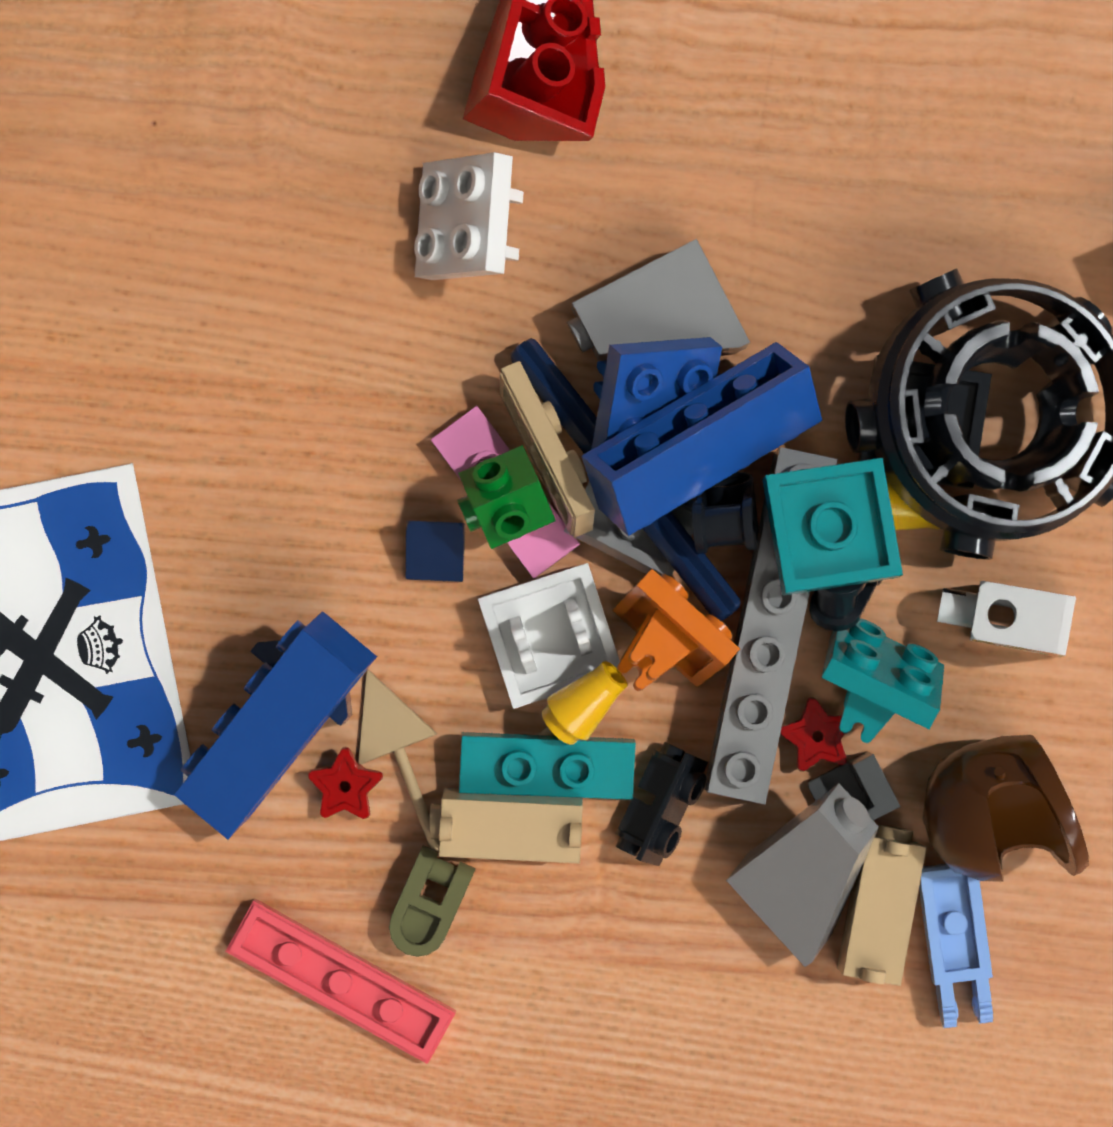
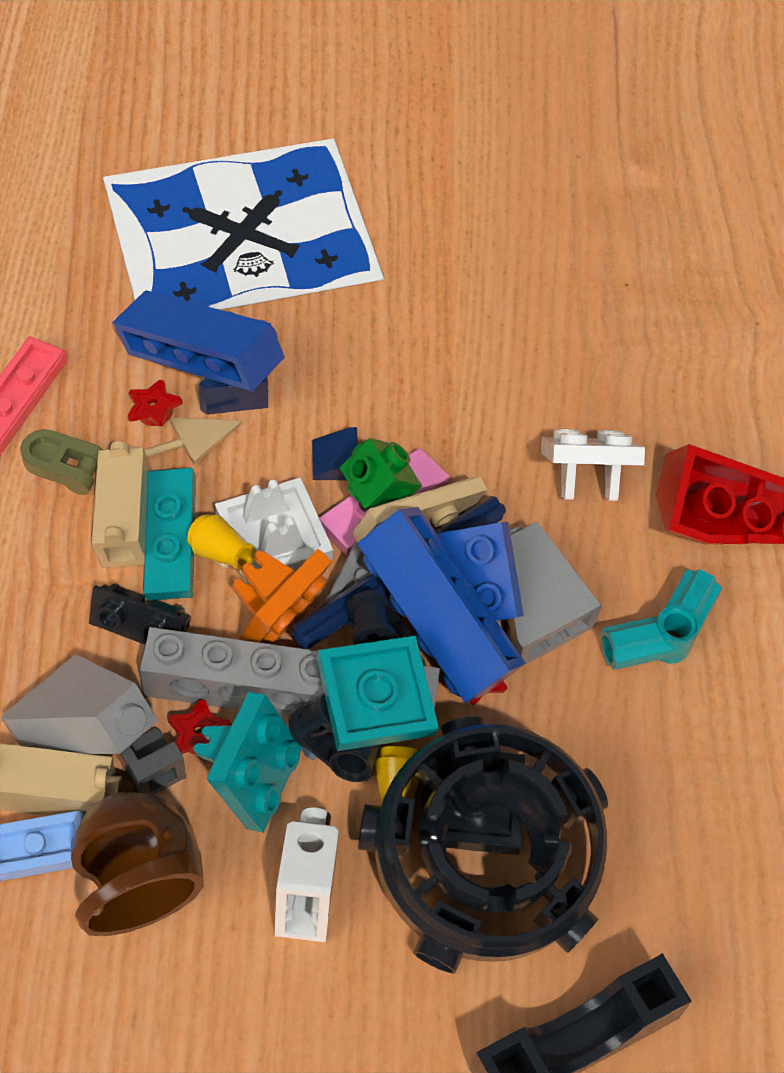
camera: 80 degrees right, 30 degrees down
(729, 188) = (648, 638): none -> teal piece

